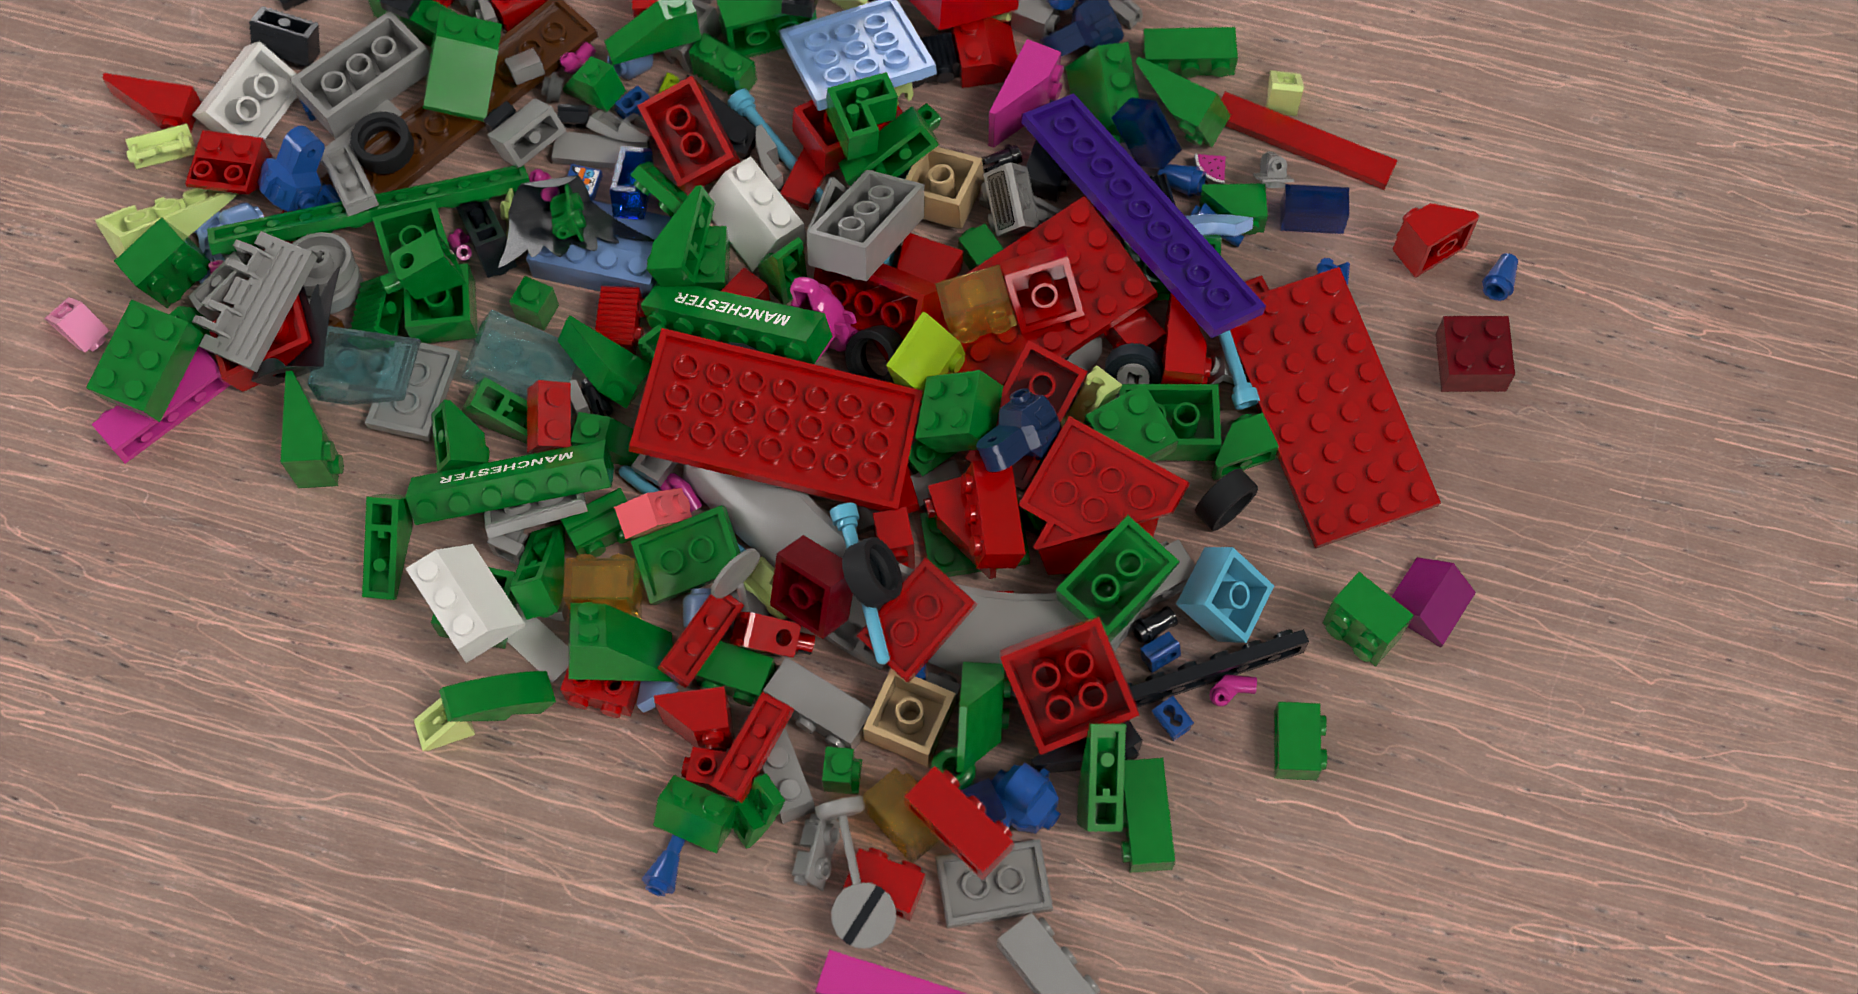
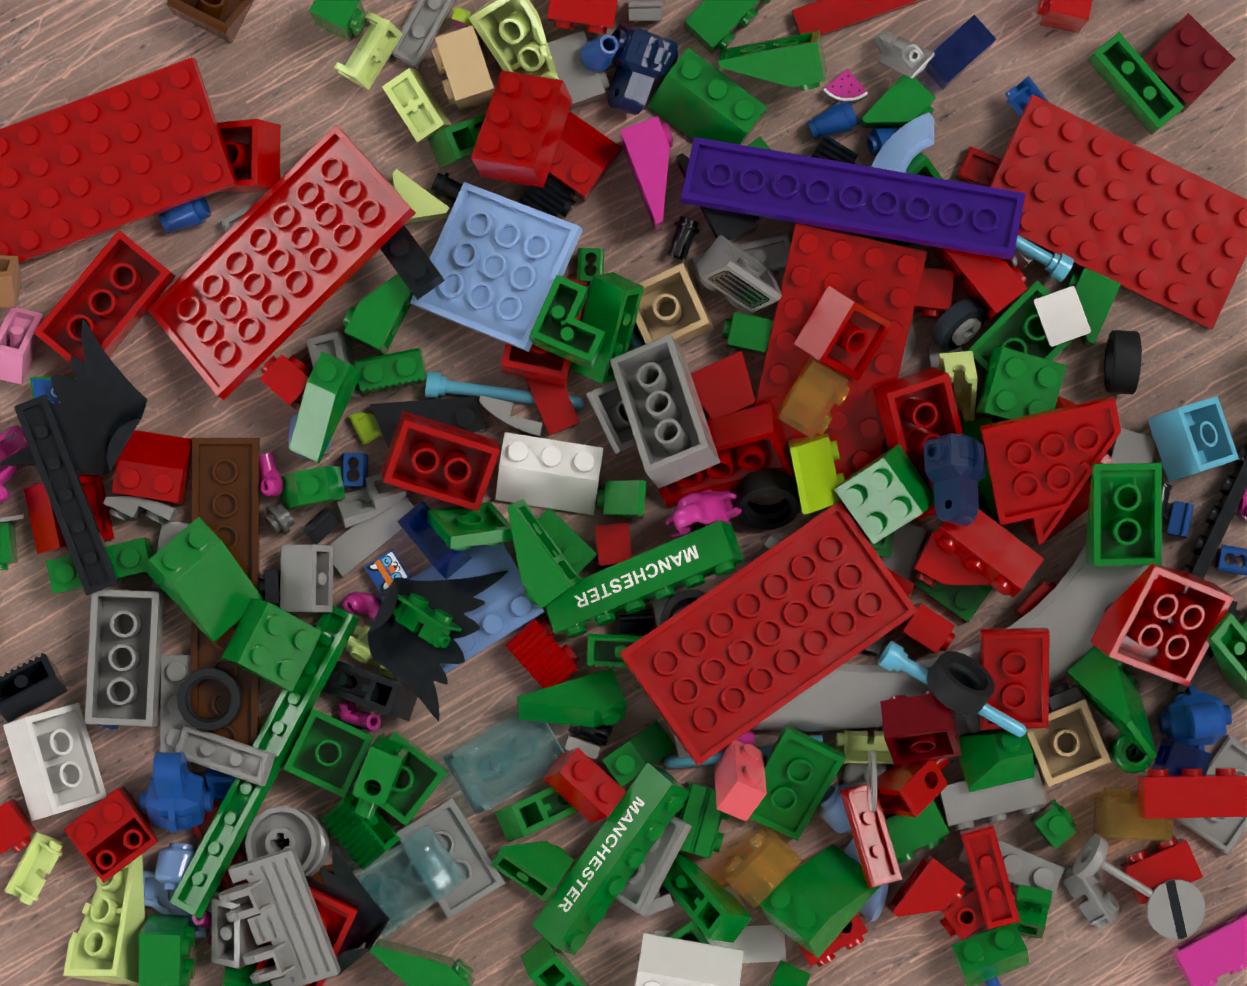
camera: 50 degrees left, 20 degrees up
(457, 144) = (271, 644): none -> green brick
(525, 66) = (241, 525): light grey slope -> none
(534, 303) = (466, 706): green brick -> none
(849, 675) = (995, 758): none -> green slope
(1146, 133) = (779, 115): clear blue panel -> none
(1212, 422) = (1062, 316): none -> white sticker
(1423, 332) = (1135, 83): none -> green brick

